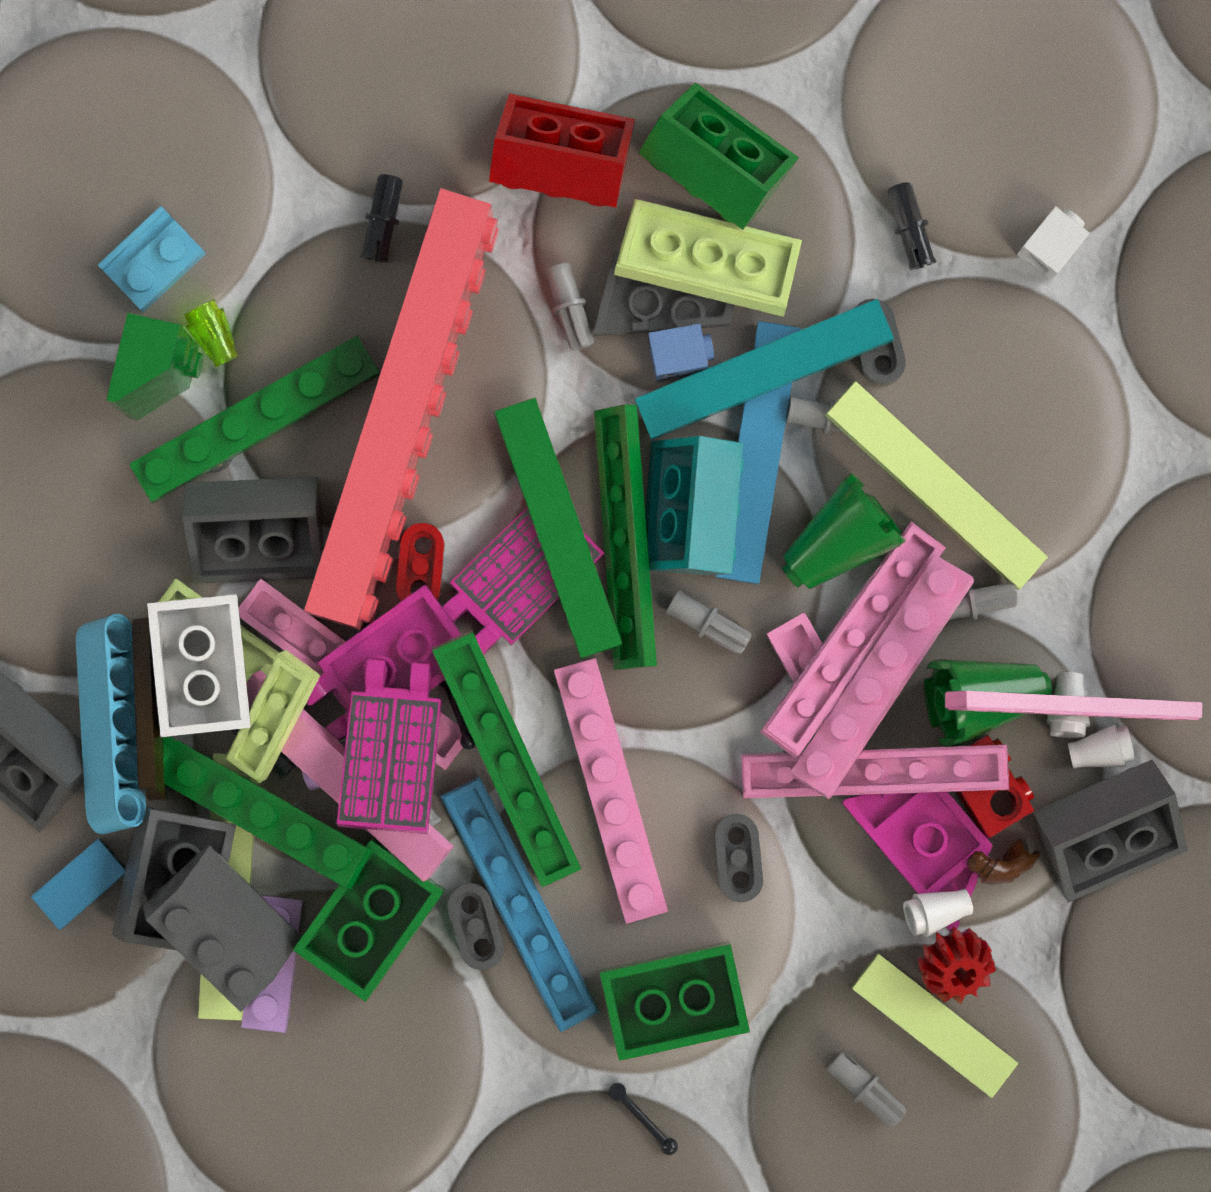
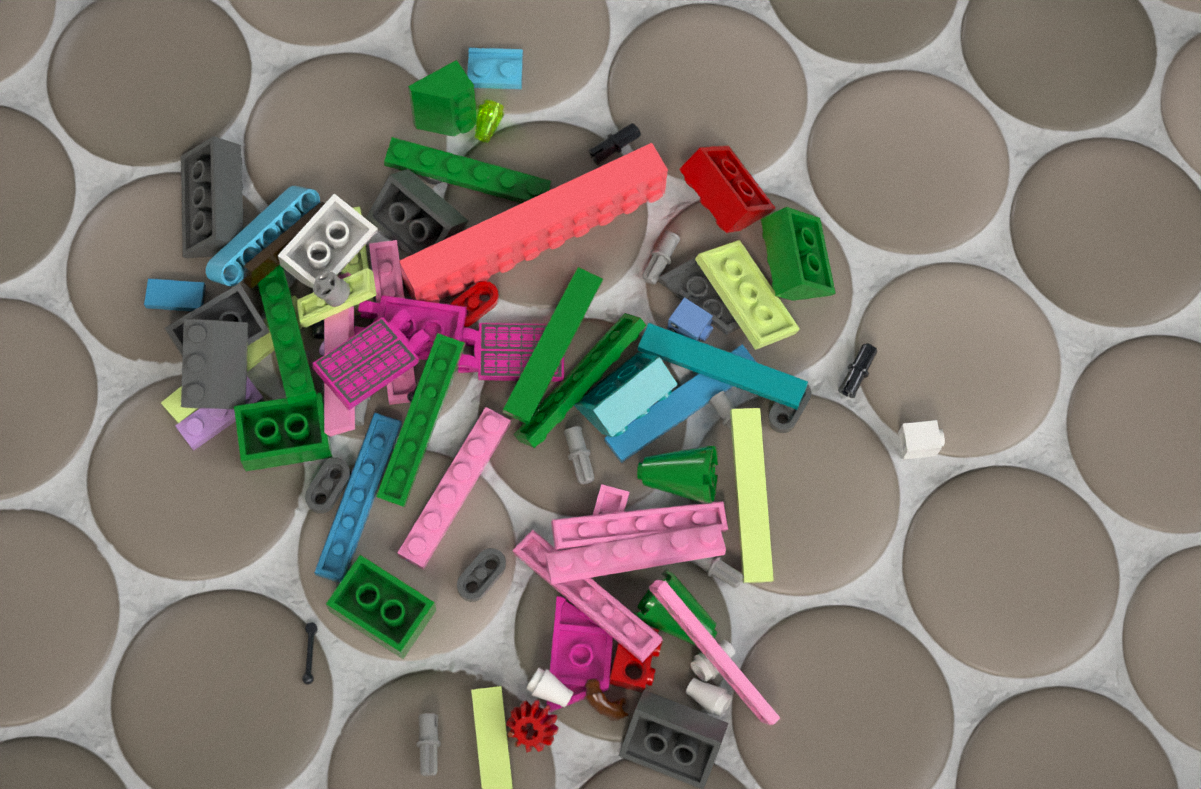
camera: 45 degrees right, 15 degrees down
(261, 728) = (331, 289): none -> light grey wheel

